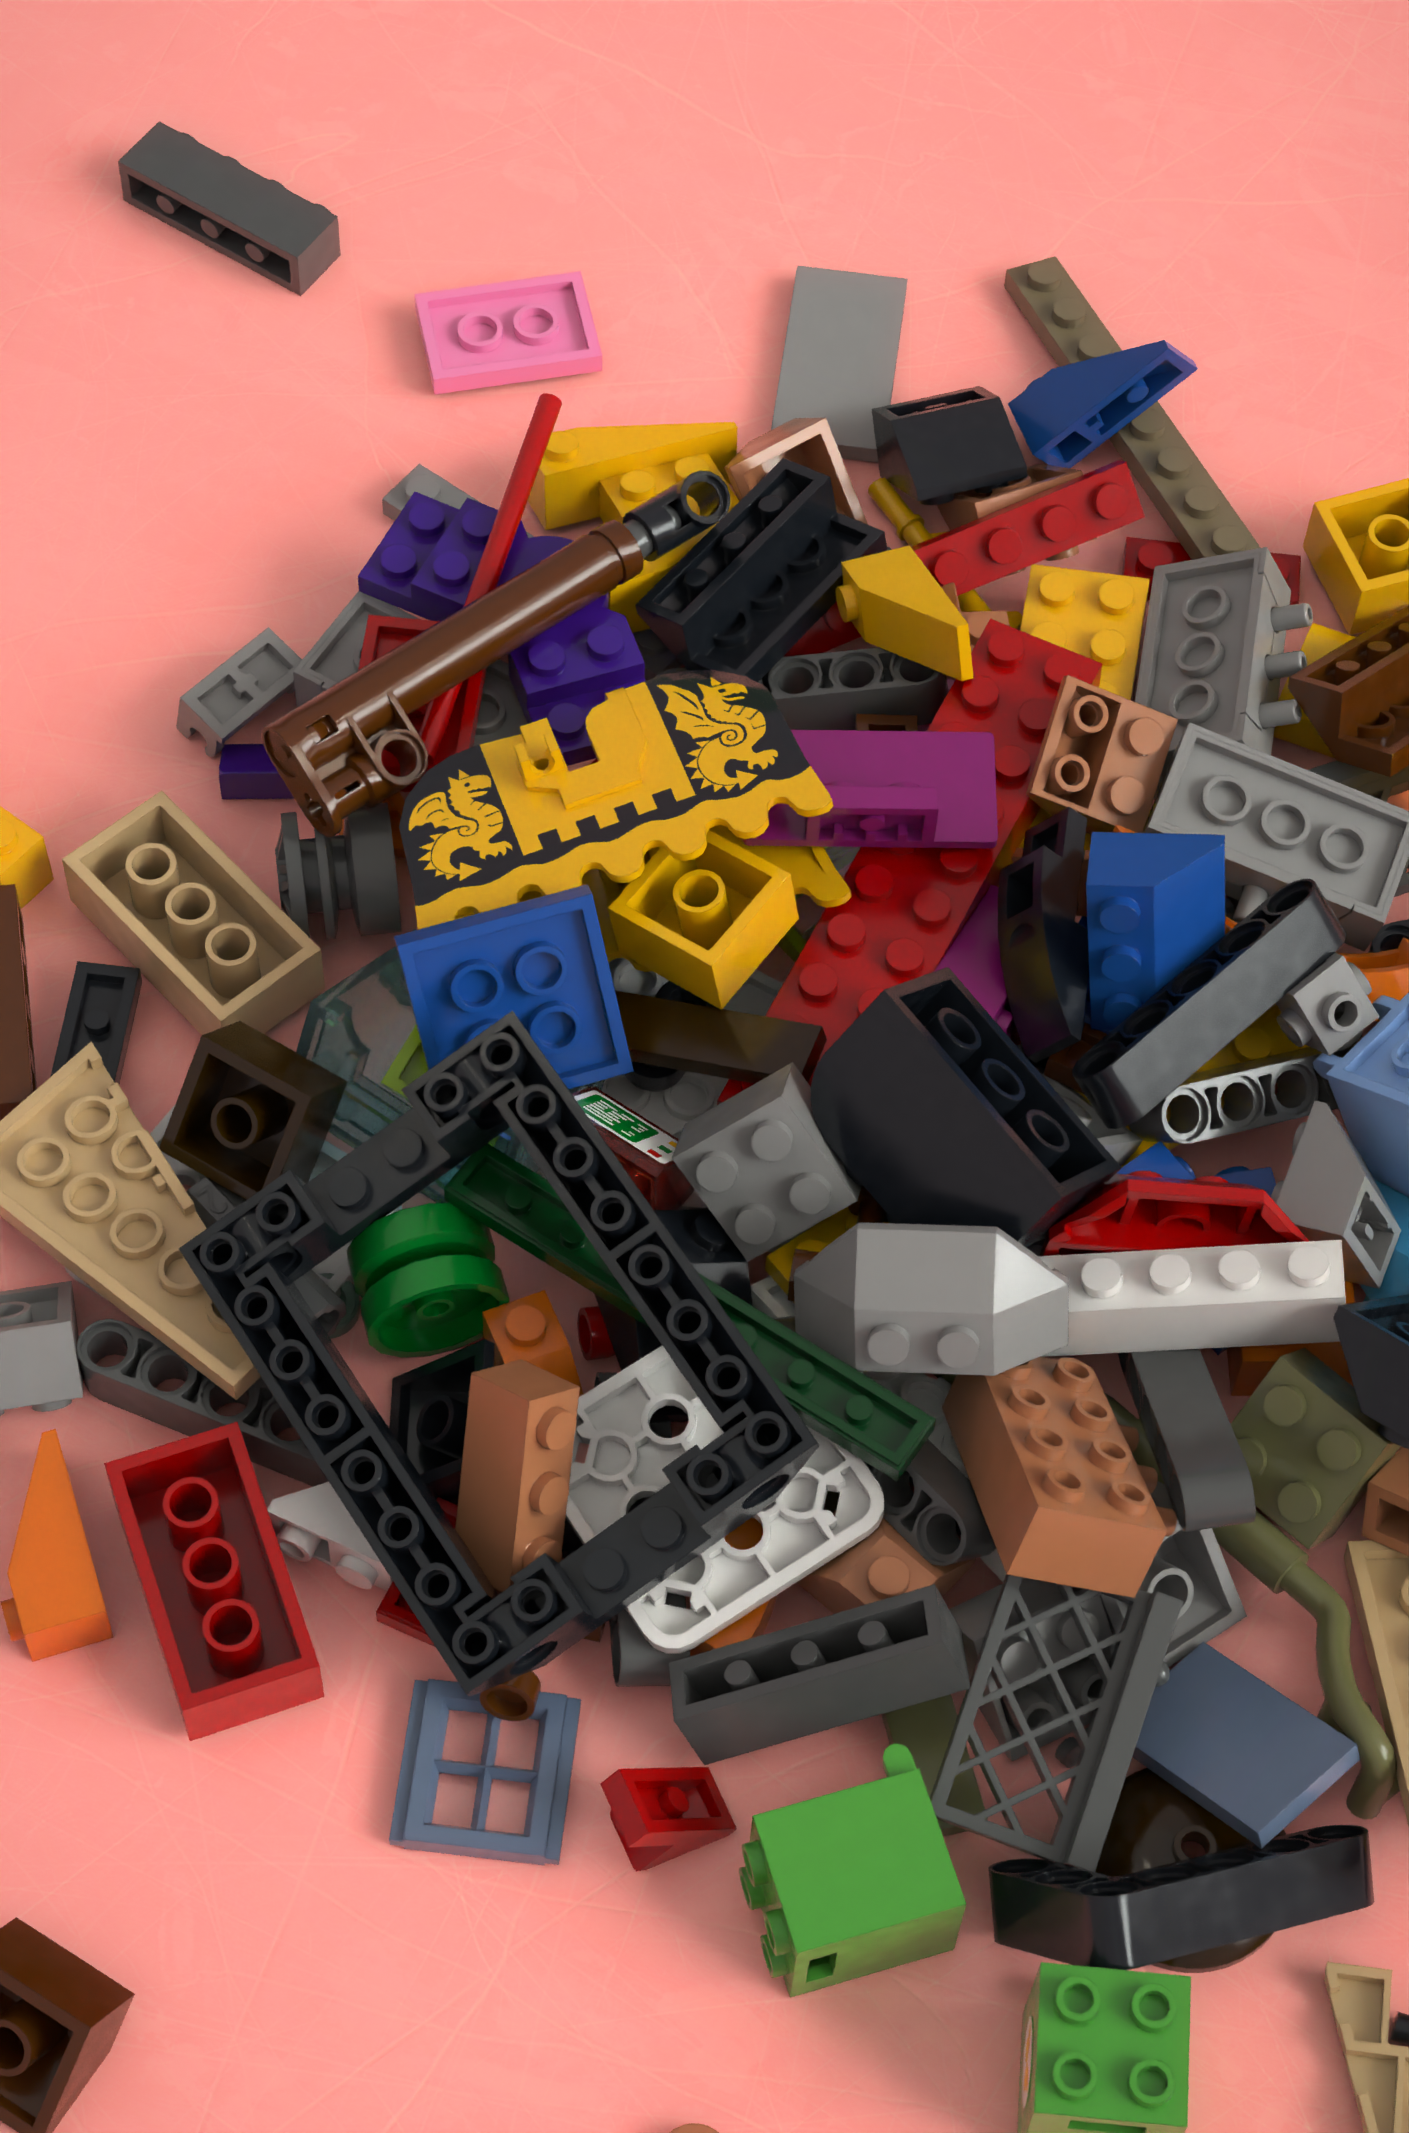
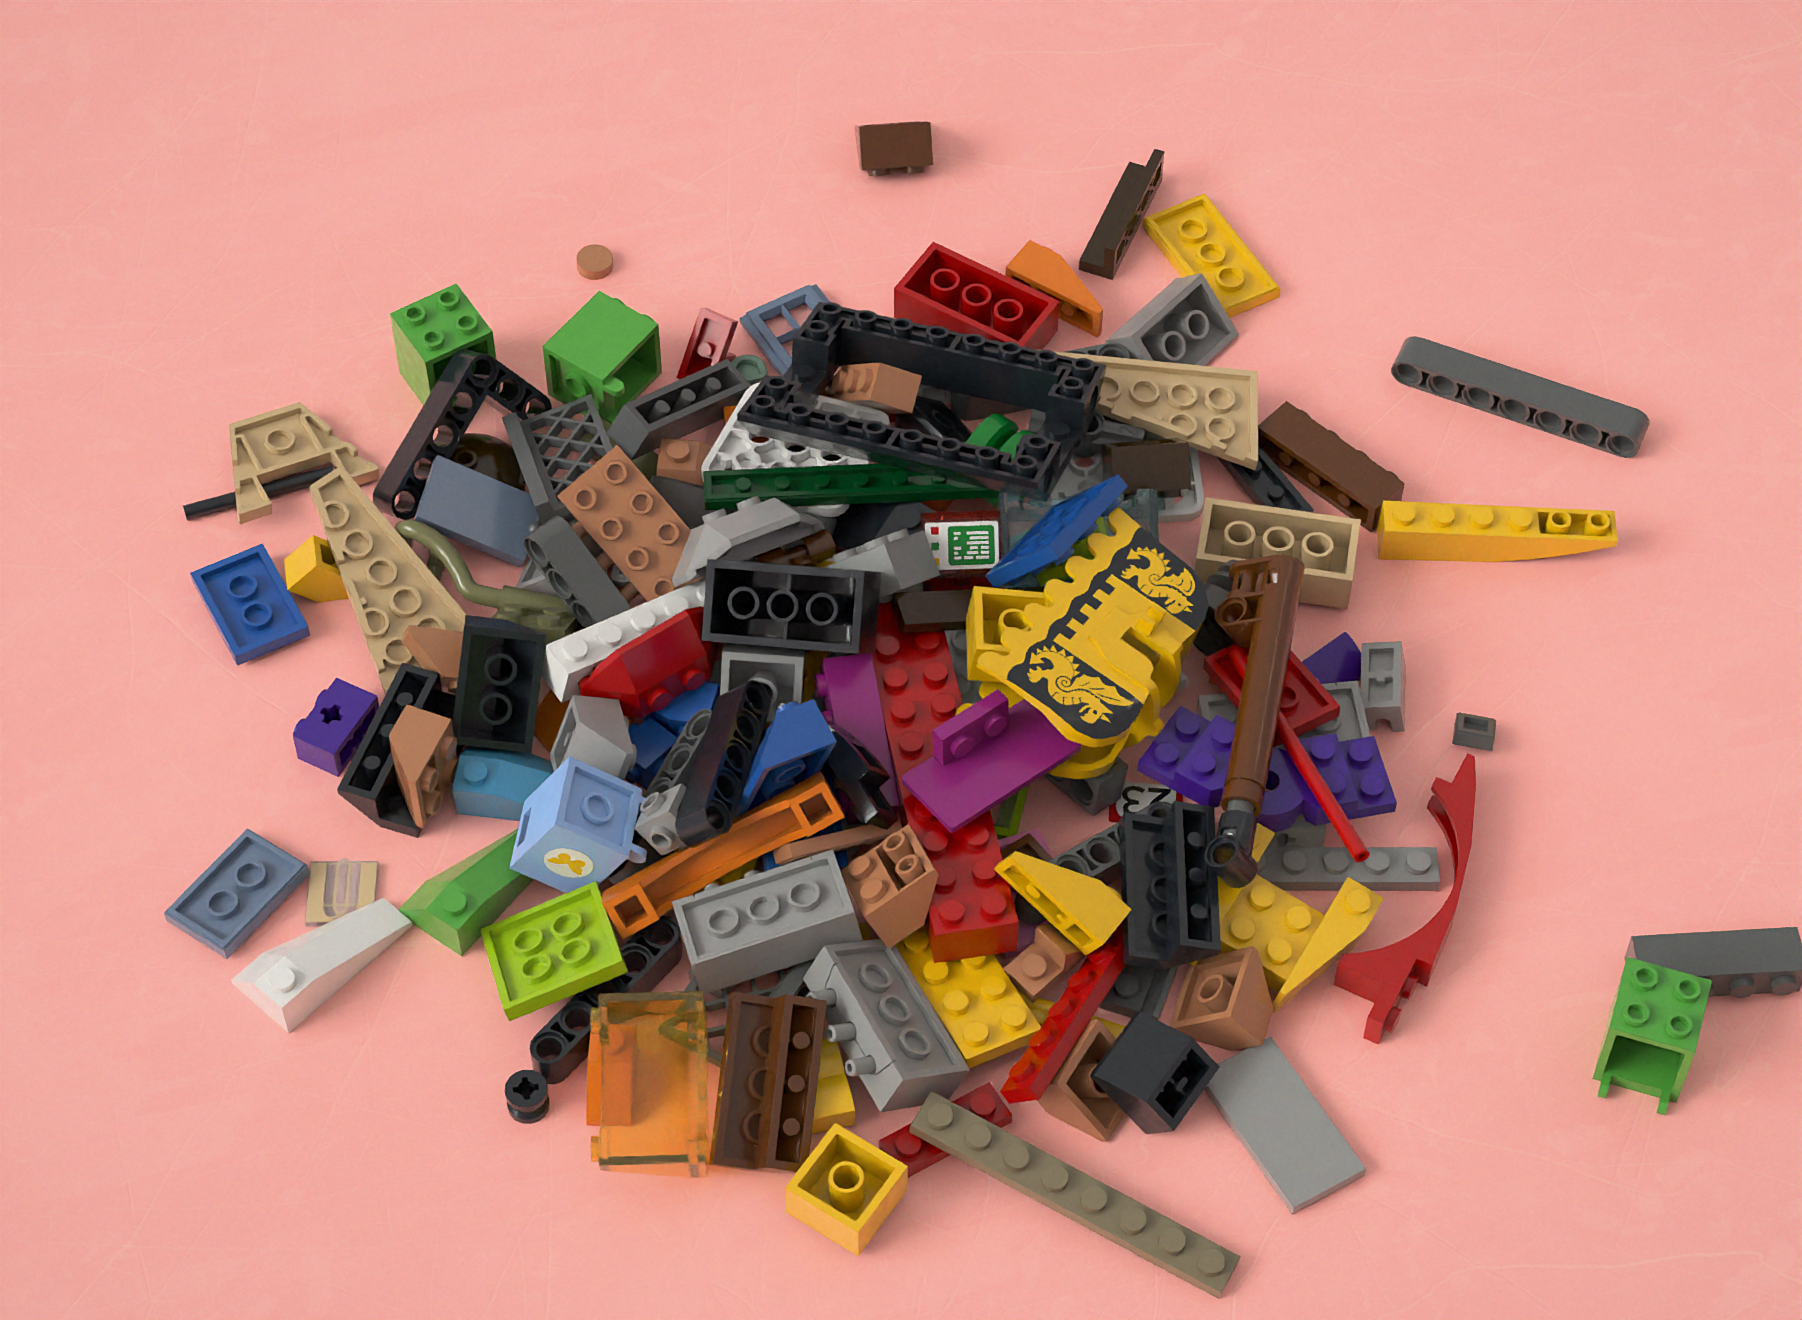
camera: 145 degrees right, 5 degrees down
(195, 588) = (1474, 731): none -> dark grey tile
(319, 510) = (1394, 970): none -> red slope
(389, 158) = (1651, 1031): none -> bright green container
(508, 332) = (1480, 999): bright pink plate -> none
(625, 1744) = (751, 368): none -> sand green tile
(1091, 400) = (1098, 1157): blue slope -> none

